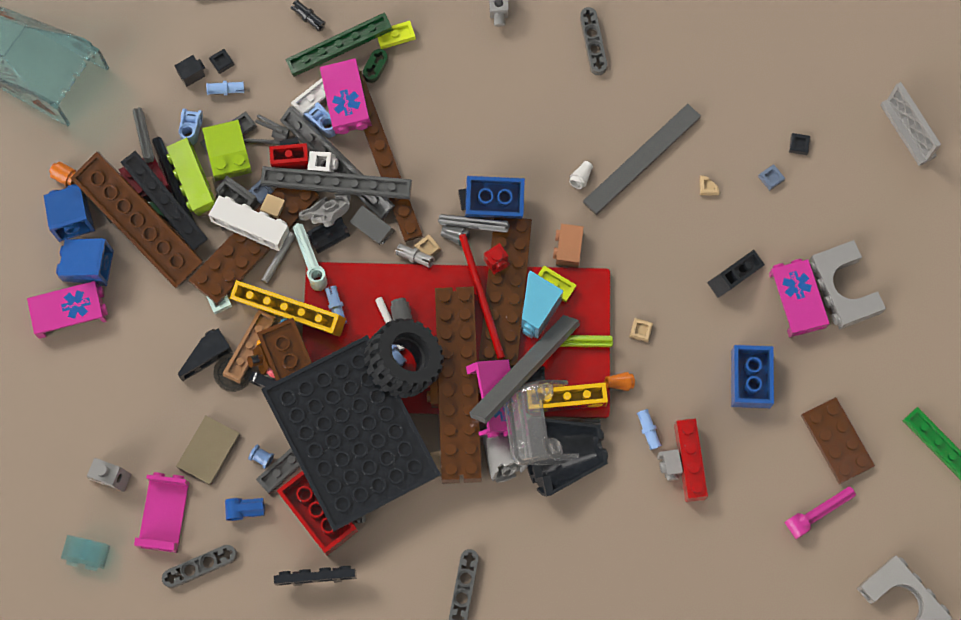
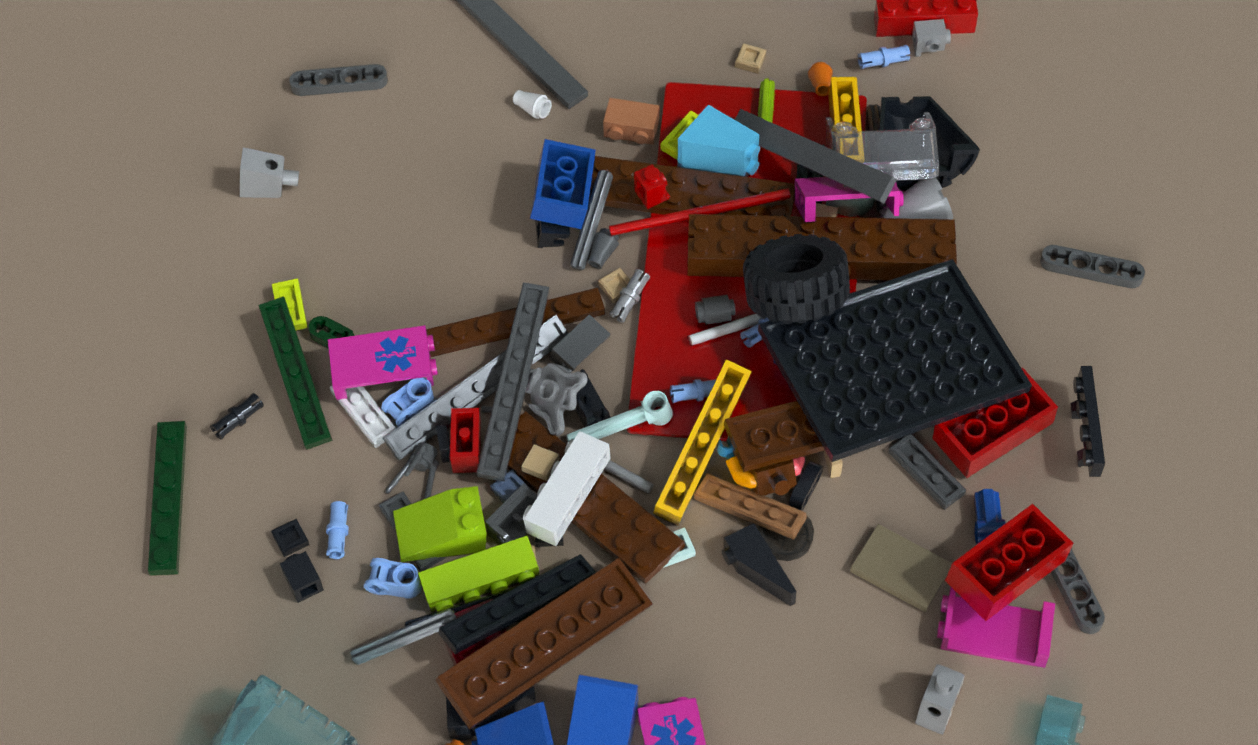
camera: 85 degrees left, 15 degrees down
(196, 516) = (1009, 562): none -> red brick
(261, 456) = (914, 495): medium blue bush -> none
(317, 160) = (481, 385): white brick -> none

